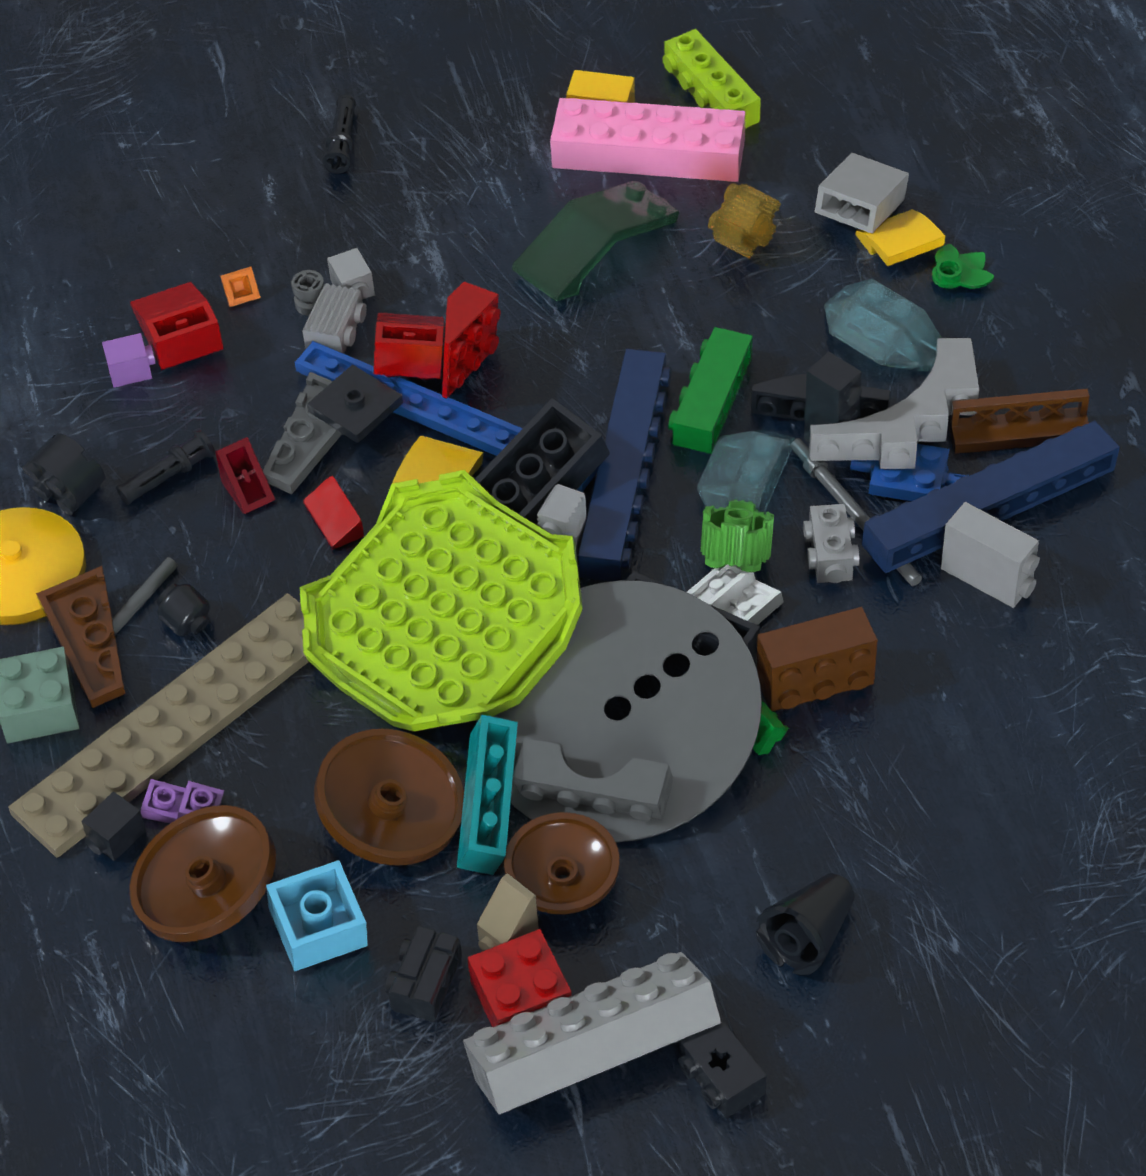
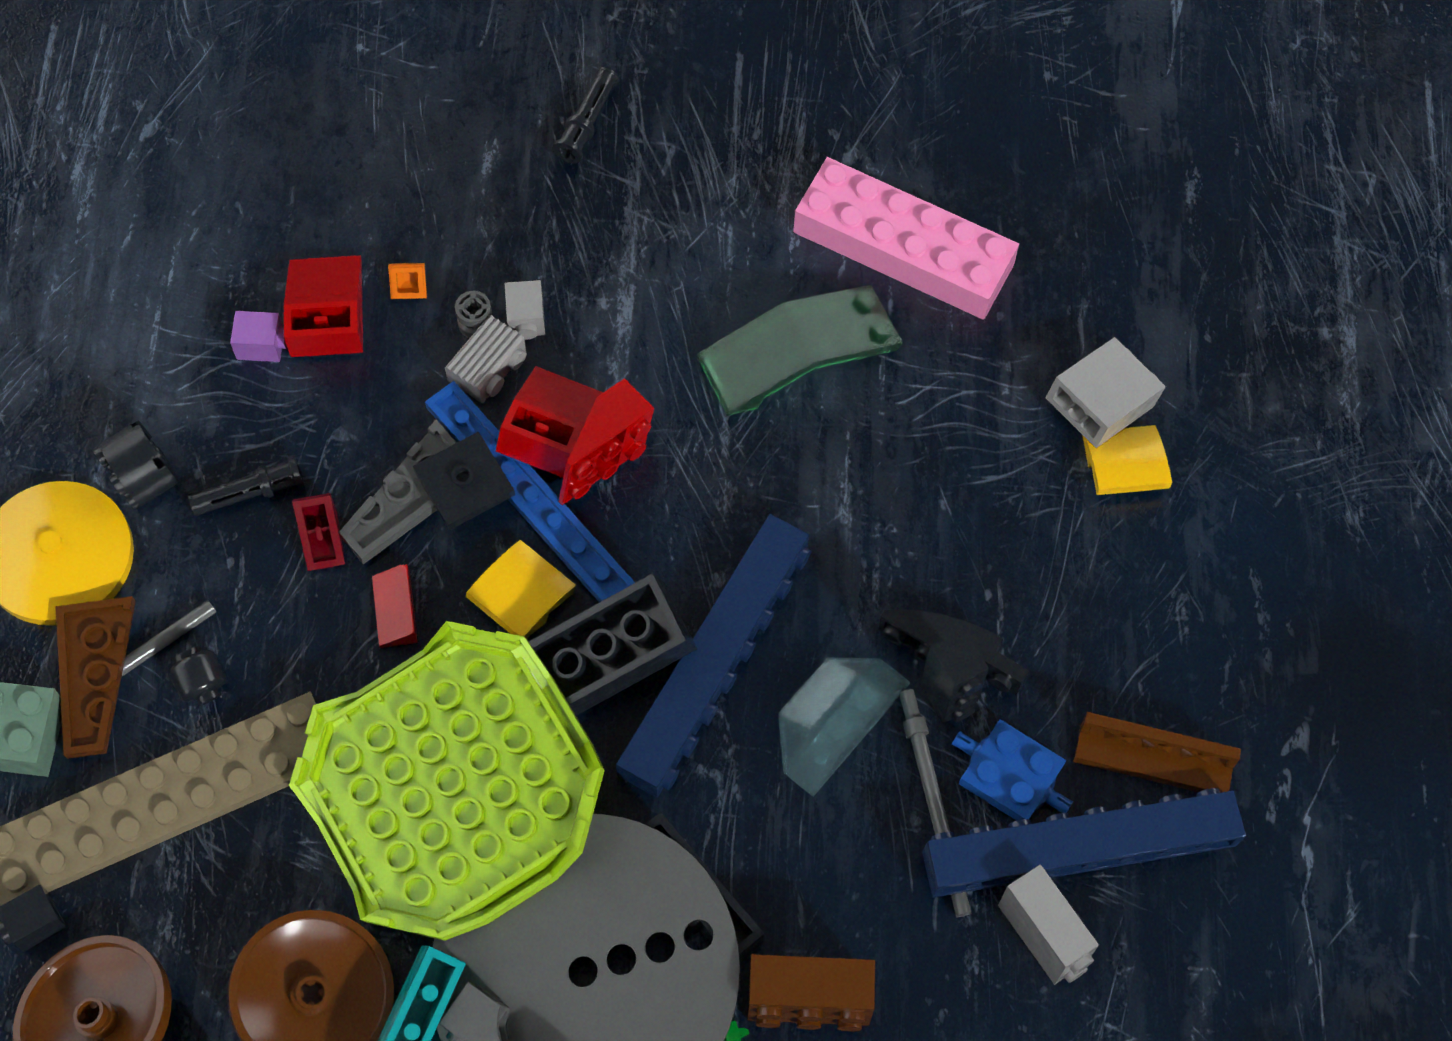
camera: 15 degrees right, 15 degrees up
(169, 802) = (110, 910): medium lavender slope -> none
(564, 513) = (613, 719): light grey brick -> none
(601, 87) = (879, 157): yellow brick -> none
(709, 76) = (1003, 179): lime brick -> none
(711, 390) = (844, 592): green brick -> none
(736, 536) = (790, 800): bright green brick -> none
(738, 593) = (761, 866): white slope -> none
(744, 219) = (962, 386): clear yellow brick -> none
(831, 544) = (887, 852): light grey brick -> none
(882, 326) = (1057, 575): clear light blue wedge -> none
(921, 417) = (1046, 718): light grey arch -> none
(960, 269) = (1179, 522): green plate -> none

